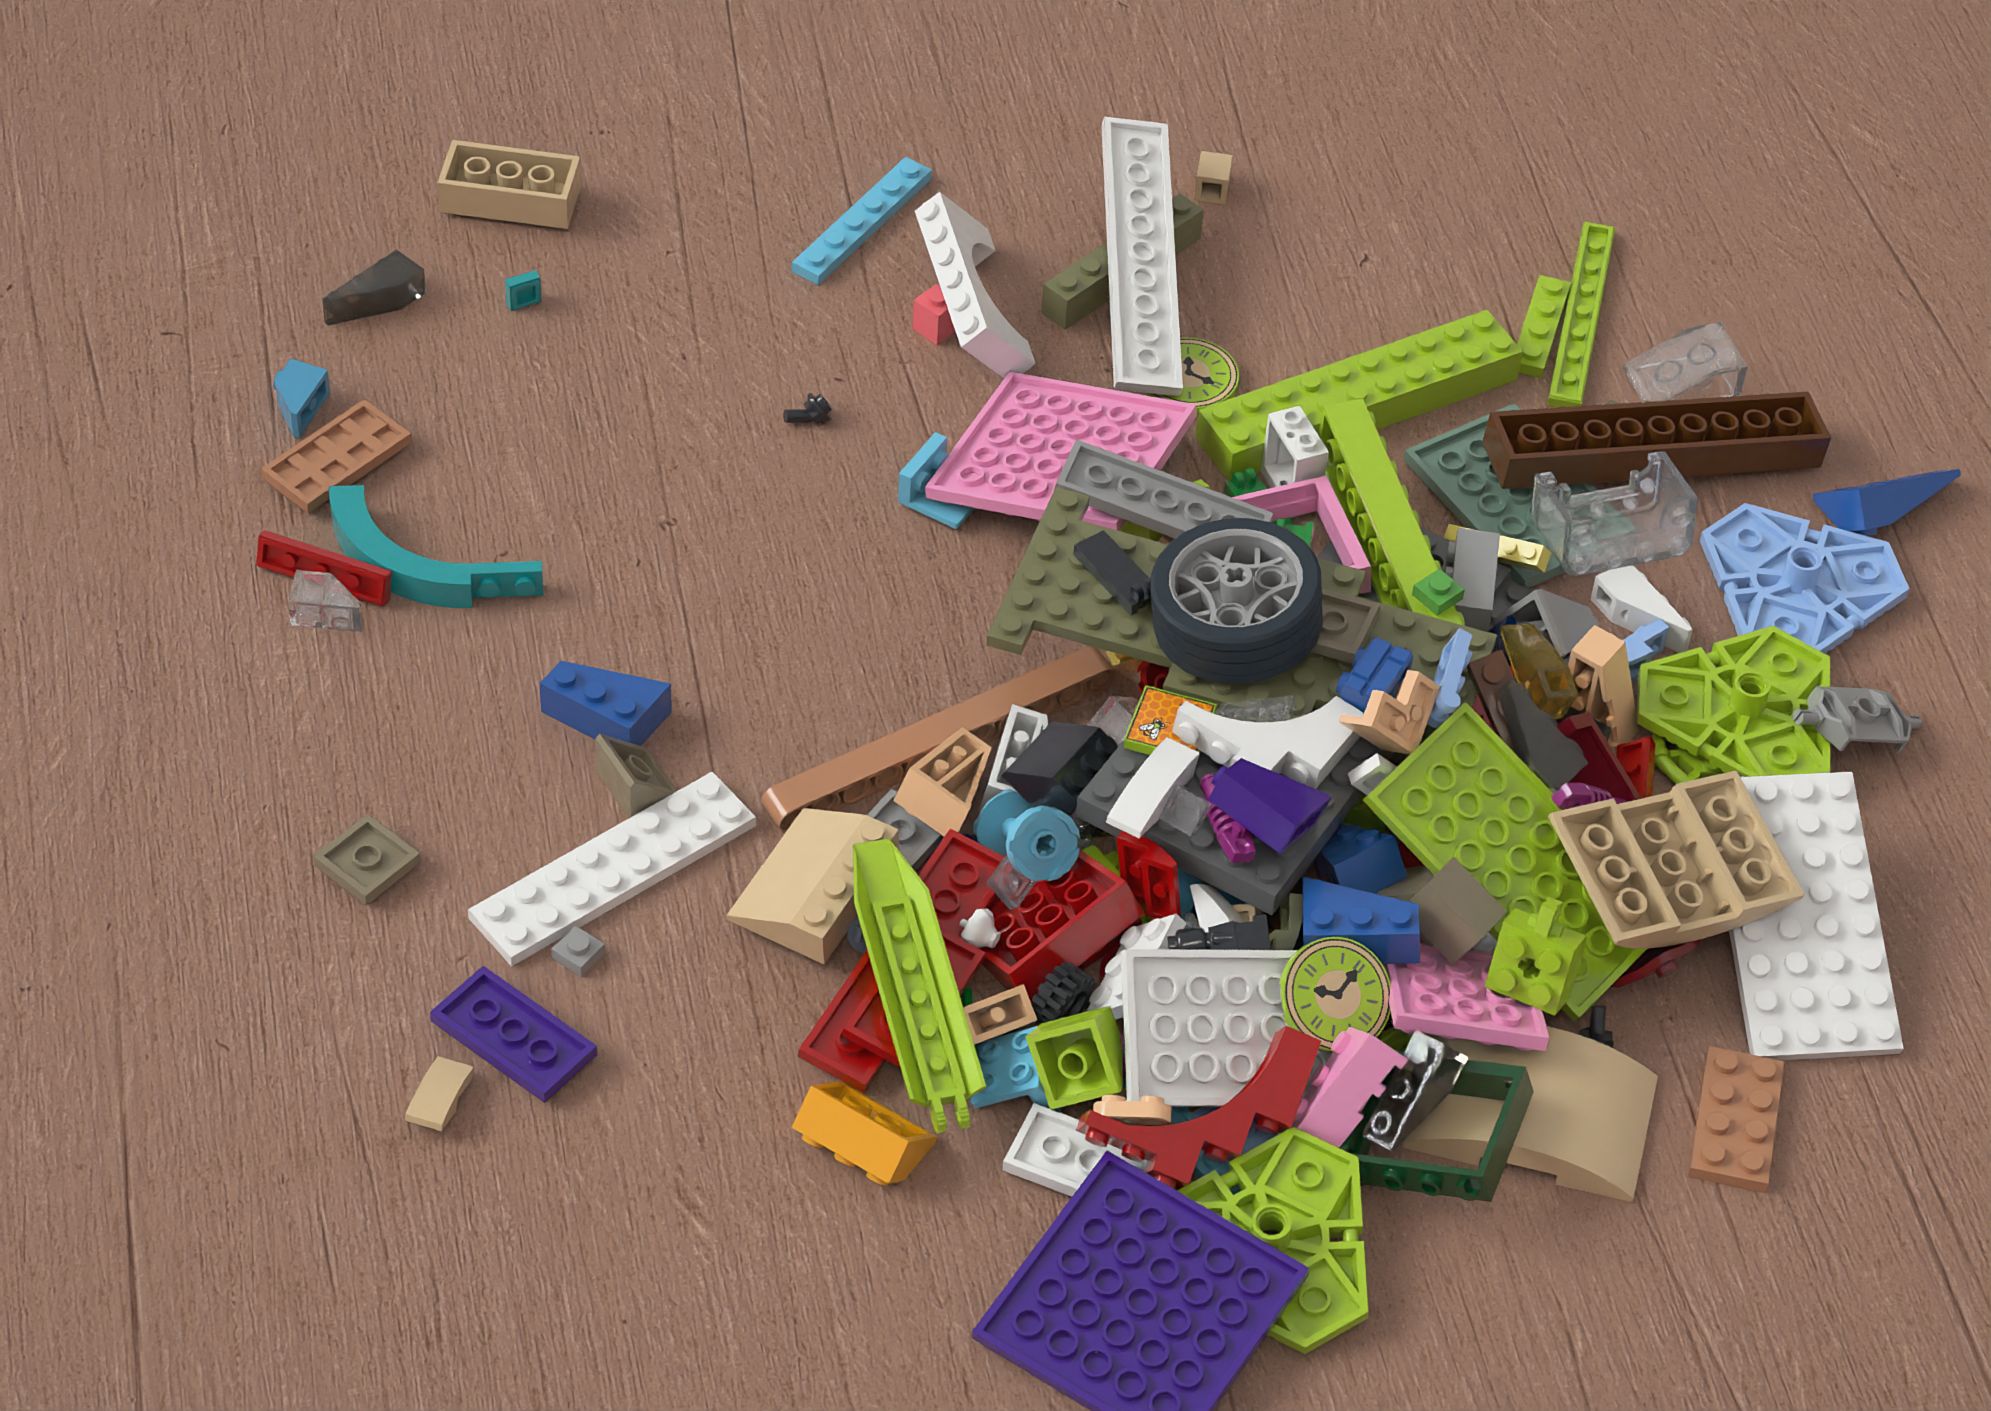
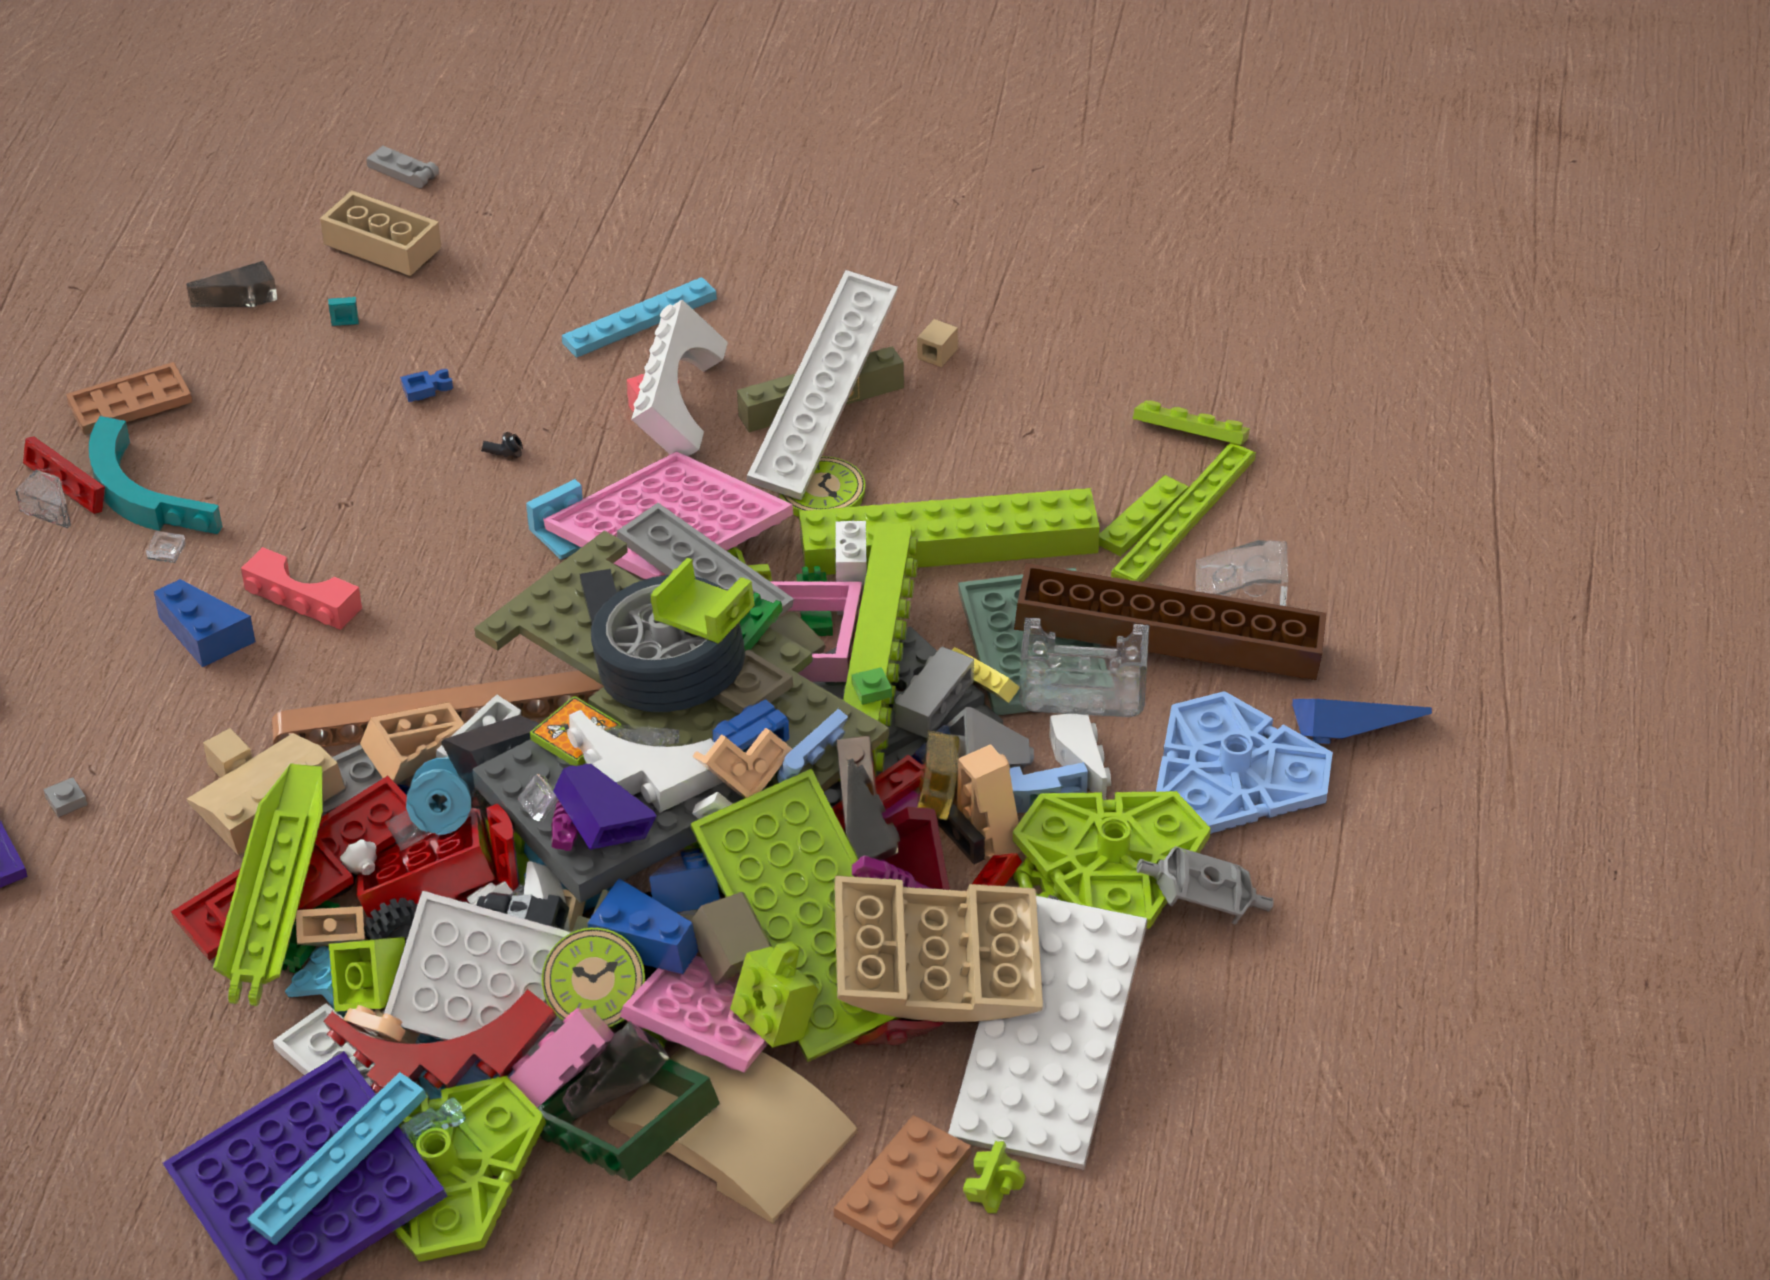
camera: 25 degrees right, 5 degrees down
(300, 393) = (131, 349): dark azure slope -> none
(471, 96) = (402, 167): none -> light grey plate
(501, 625) = (165, 547): none -> clear plate
(611, 868) = (127, 743): white plate -> none
(631, 774) = (189, 679): dark tan slope -> none
(671, 360) = (422, 385): none -> blue plate
(732, 645) = (330, 601): none -> coral arch
(739, 853) = (226, 752): none -> tan brick
(862, 1132) = (182, 987): light orange slope -> none
(1151, 787) = (510, 777): white slope -> none
(1178, 1269) = (336, 1158): none -> medium azure plate
(1245, 1205) = (447, 1116): none -> clear light blue plate
(1275, 551) = (700, 606): none -> lime panel
(1542, 209) = (1203, 424): none -> lime plate
(1597, 1027) = (820, 1078): black plate -> none
(1821, 1073) = (998, 1177): none -> lime hips

